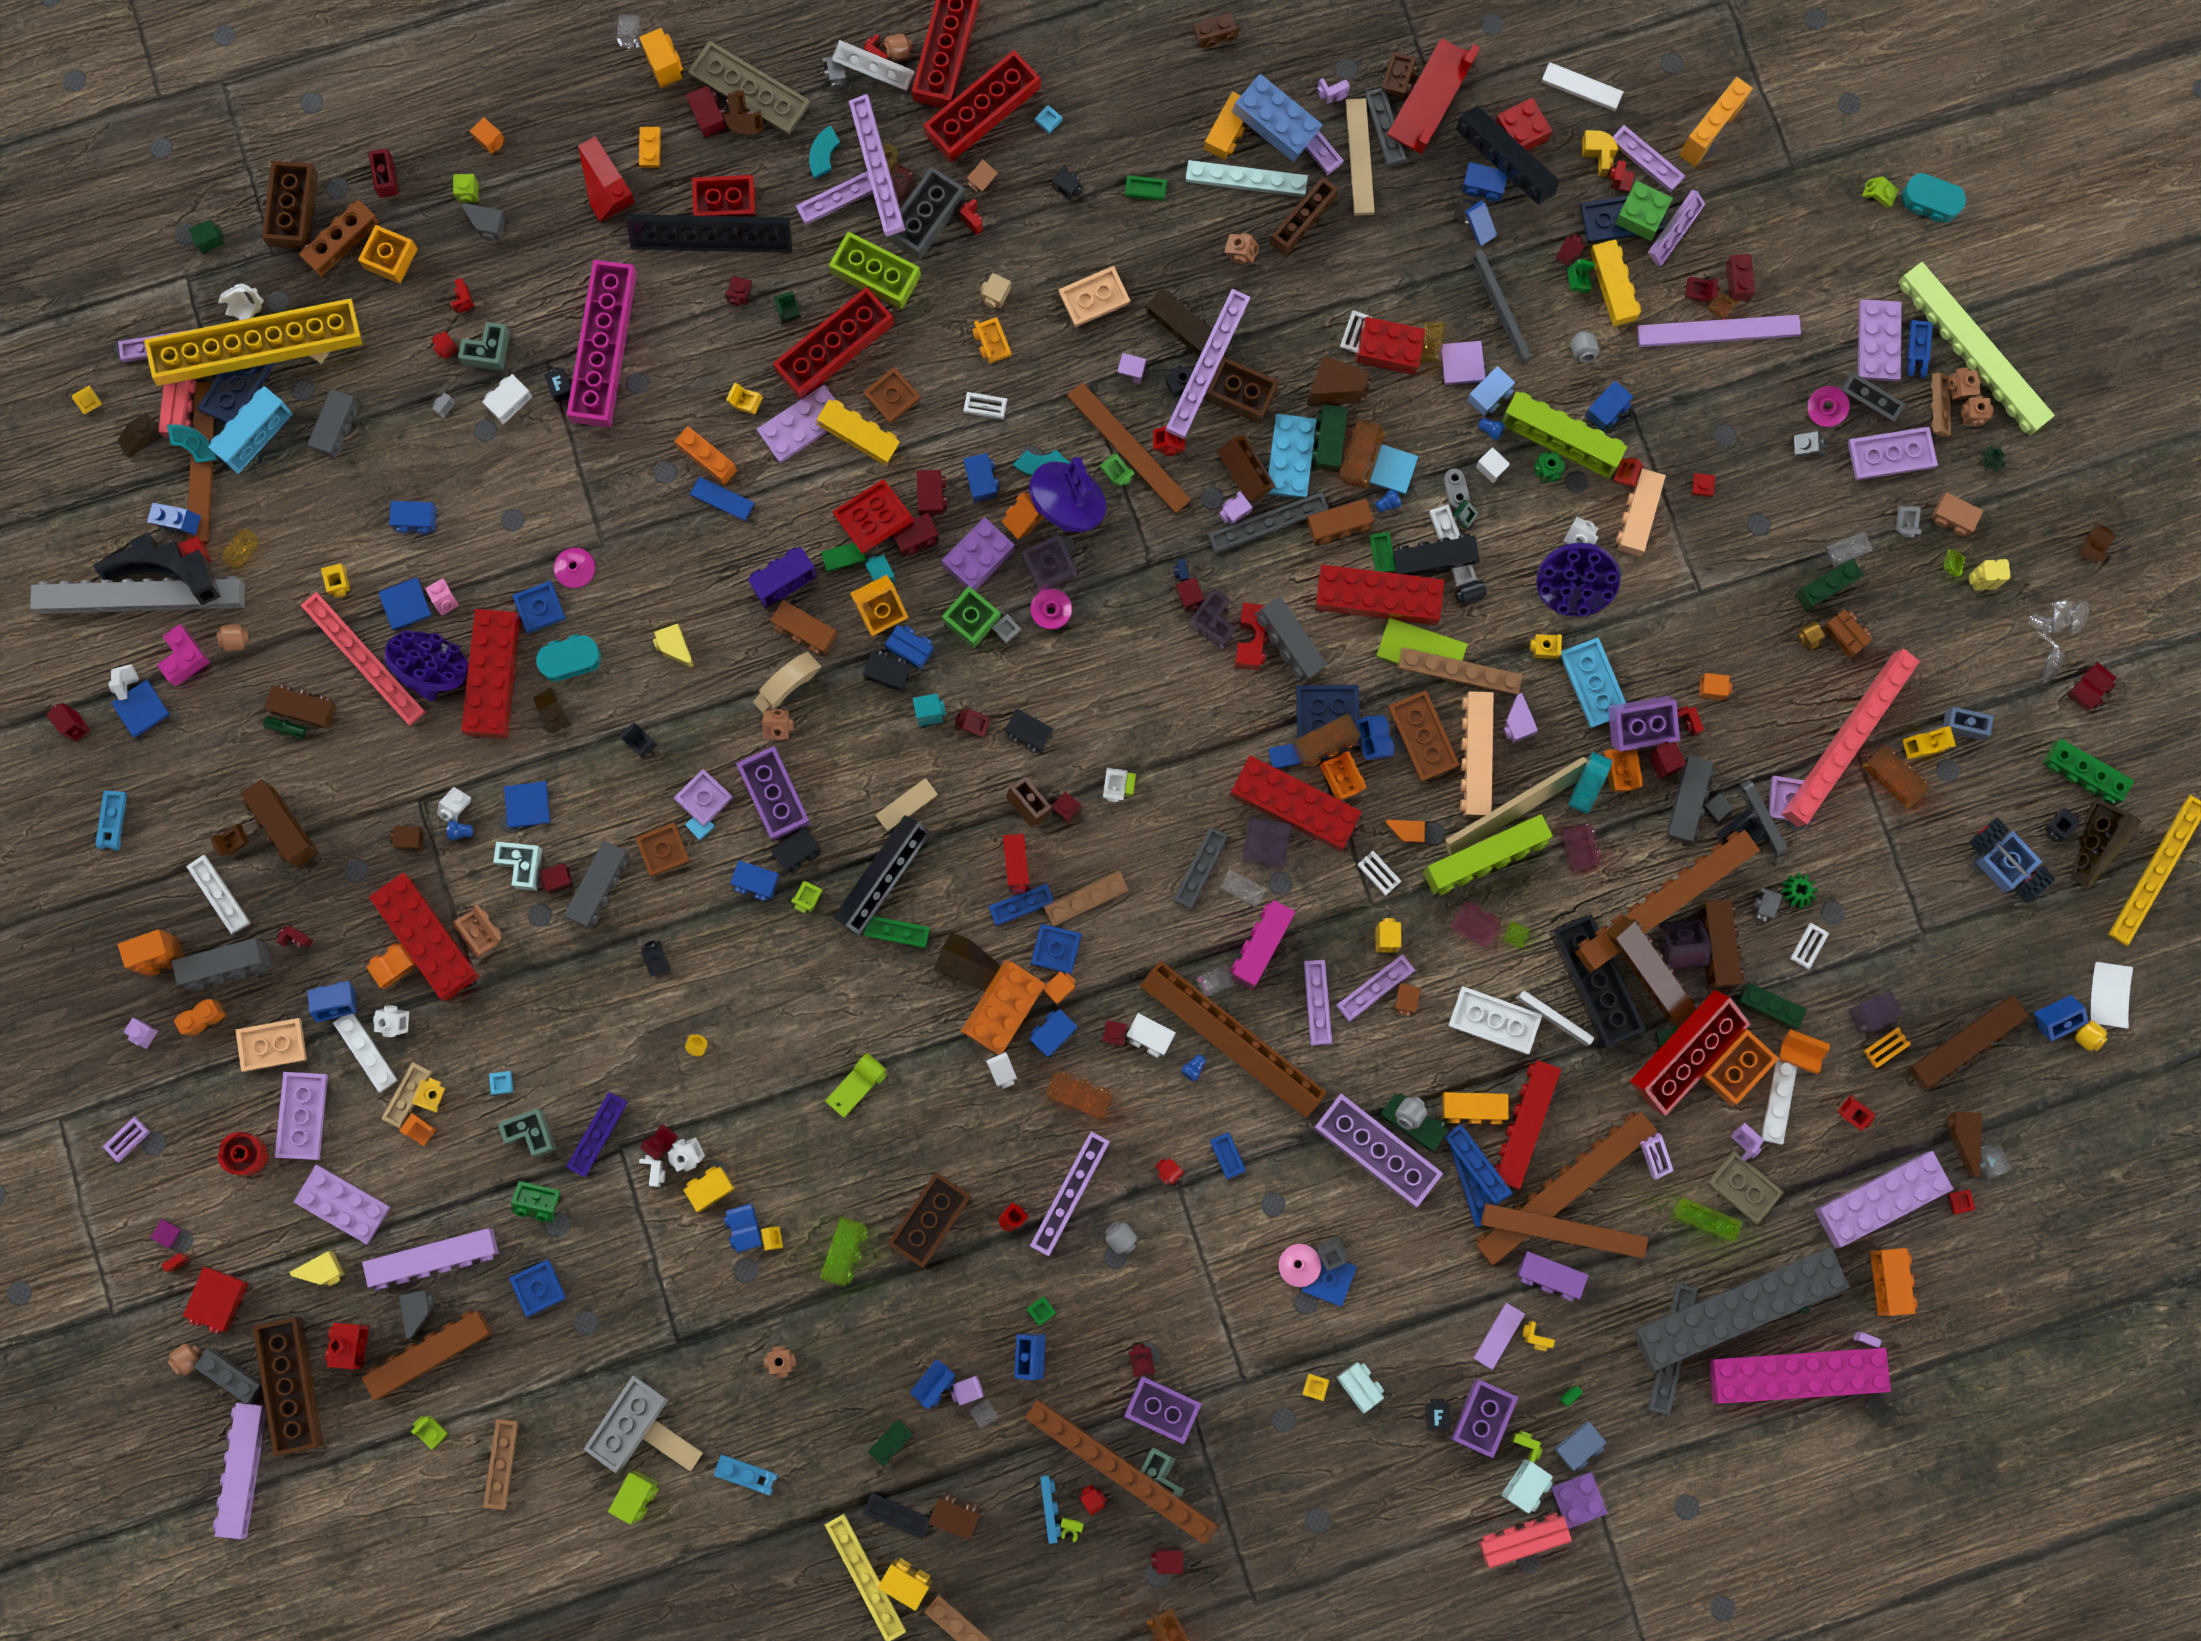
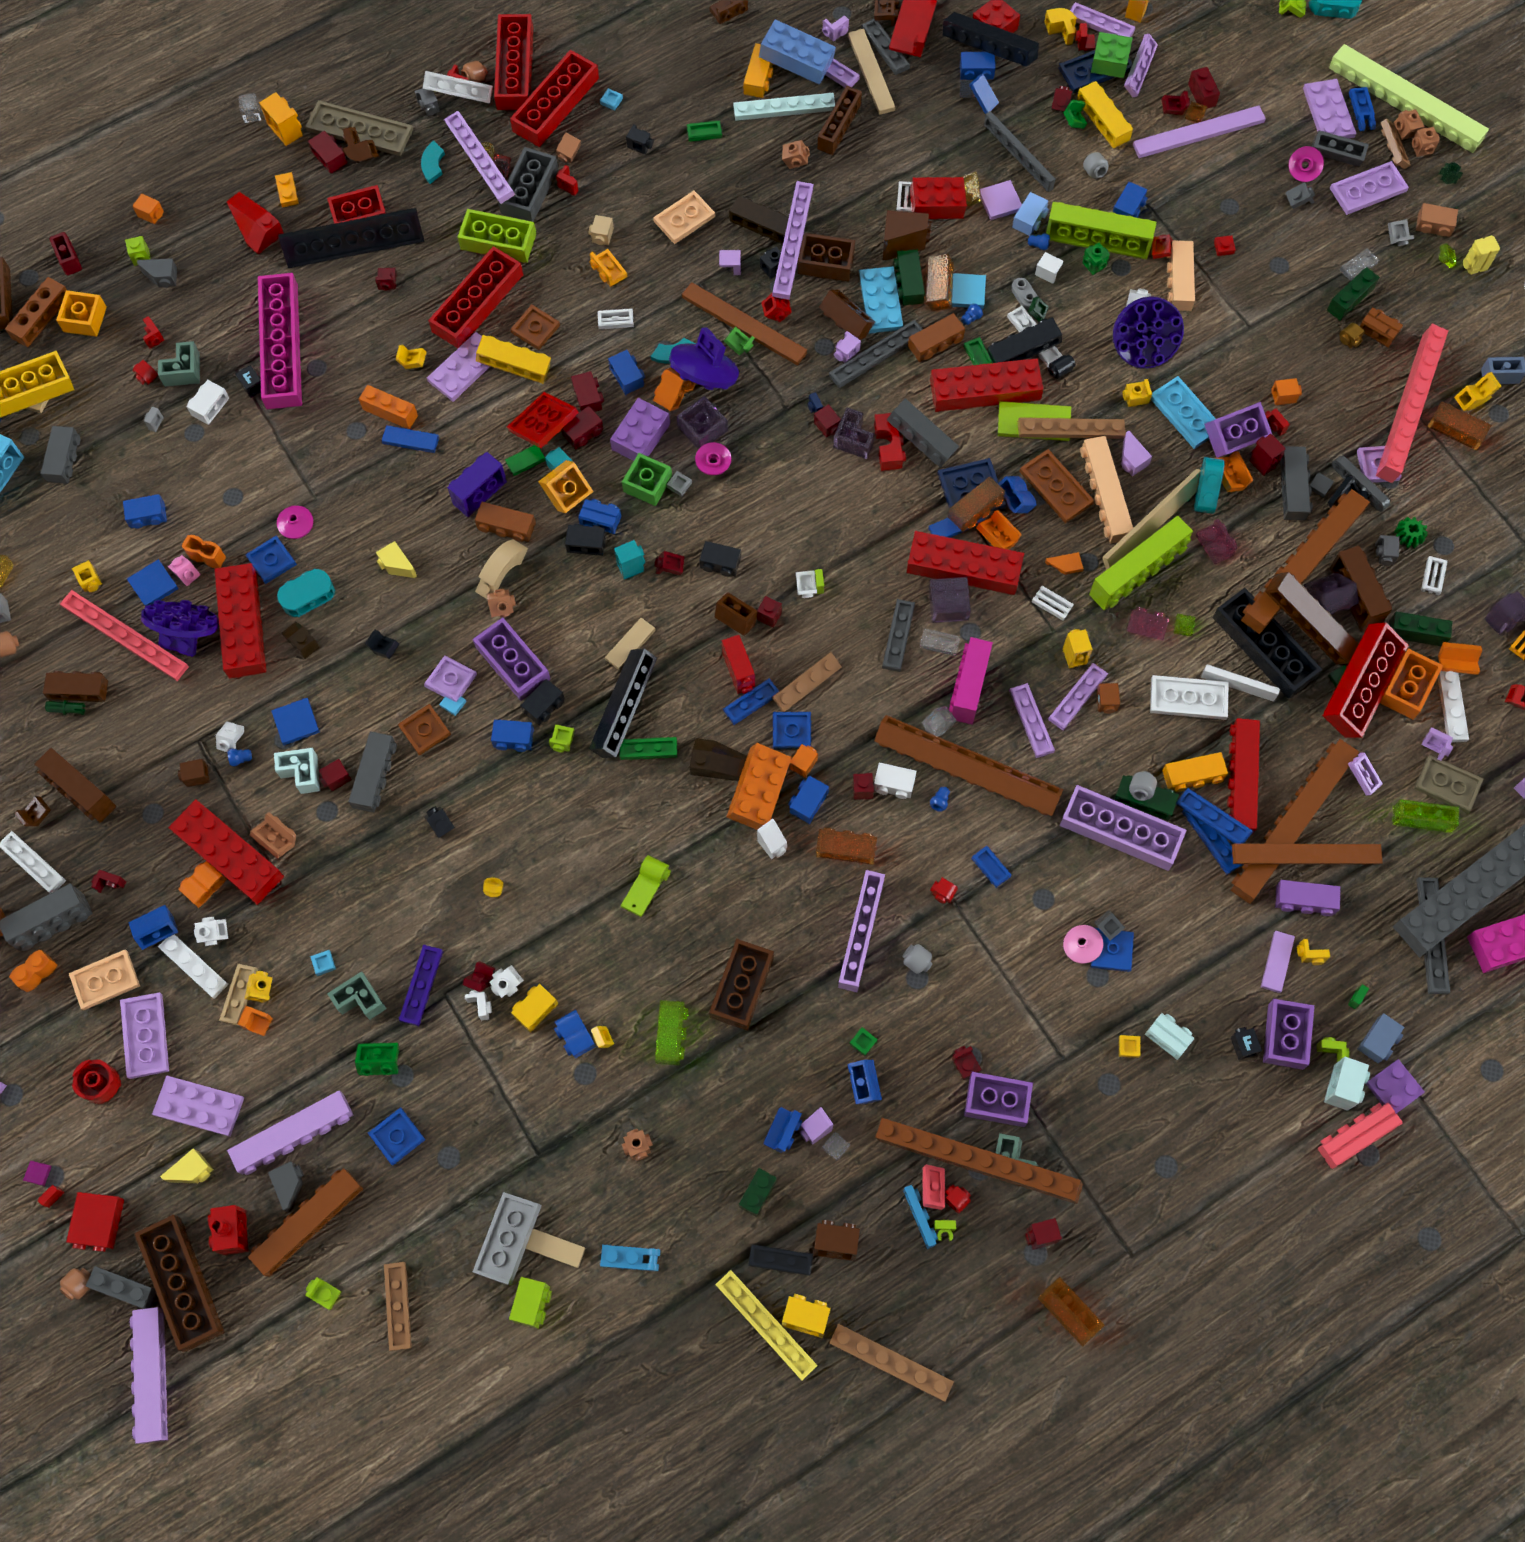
camera: 10 degrees left, 10 degrees down
(468, 583) = (203, 551): none -> orange brick
(787, 307) = (429, 280): dark green panel -> none
(835, 198) = (451, 192): lavender plate -> none
(1012, 1217) = (815, 965): red plate -> none
(1071, 1482) = (933, 1187): none -> coral plate

